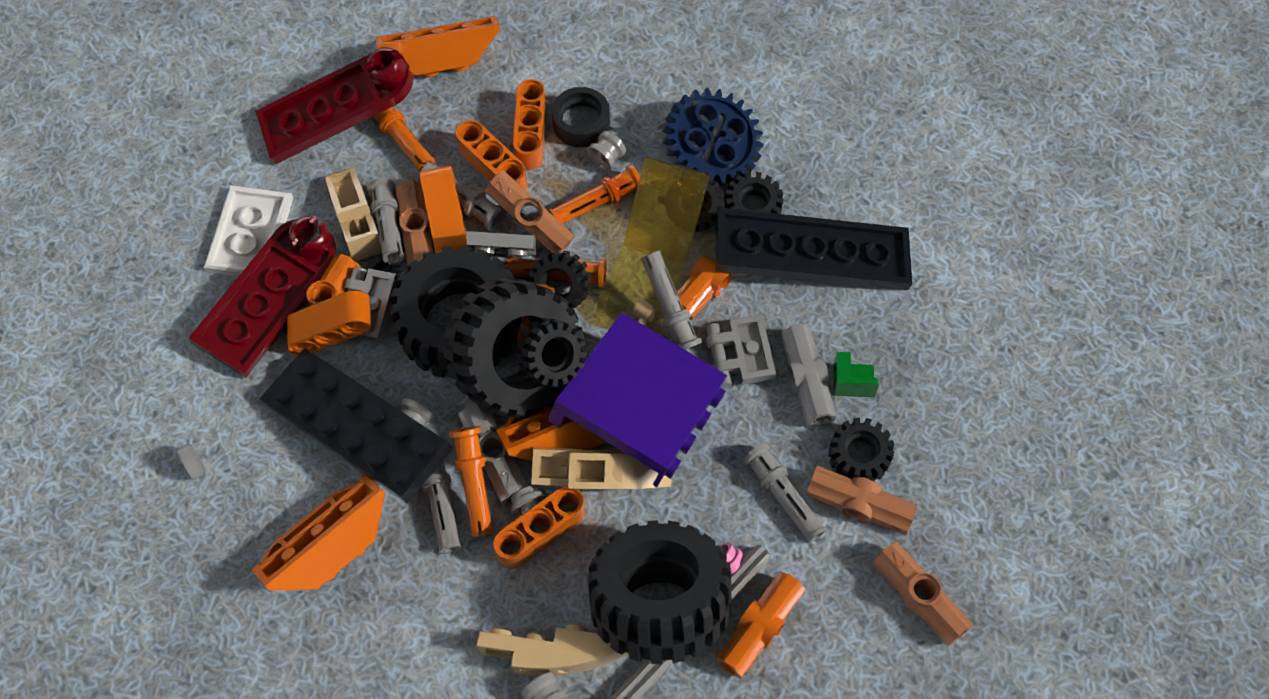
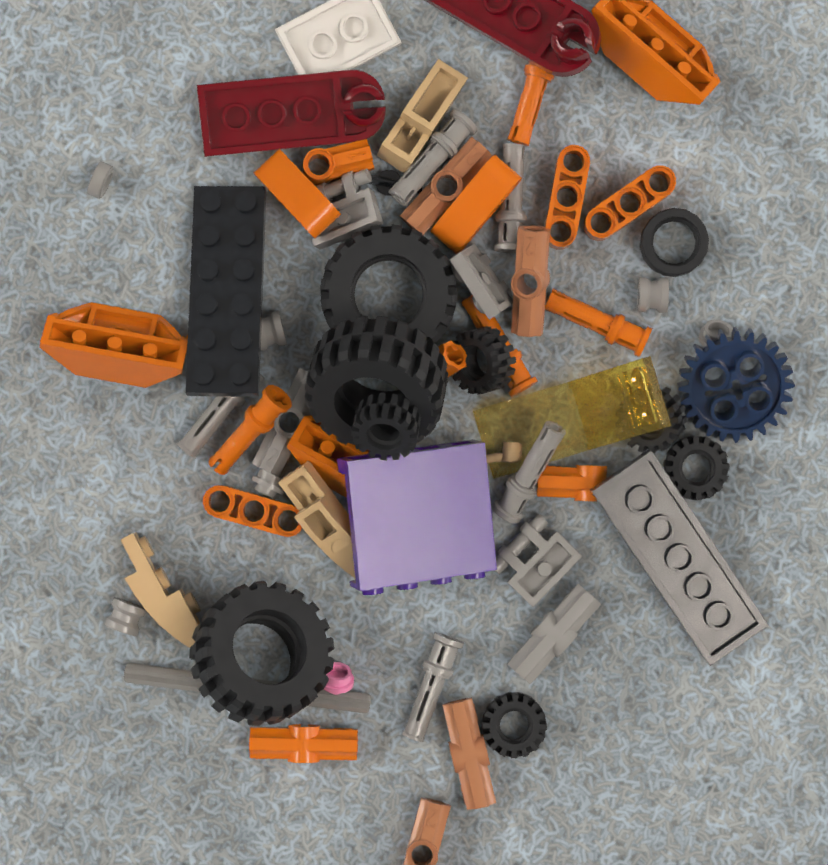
camera: 50 degrees right, 25 degrees up
(853, 379) = (581, 673): green panel -> none

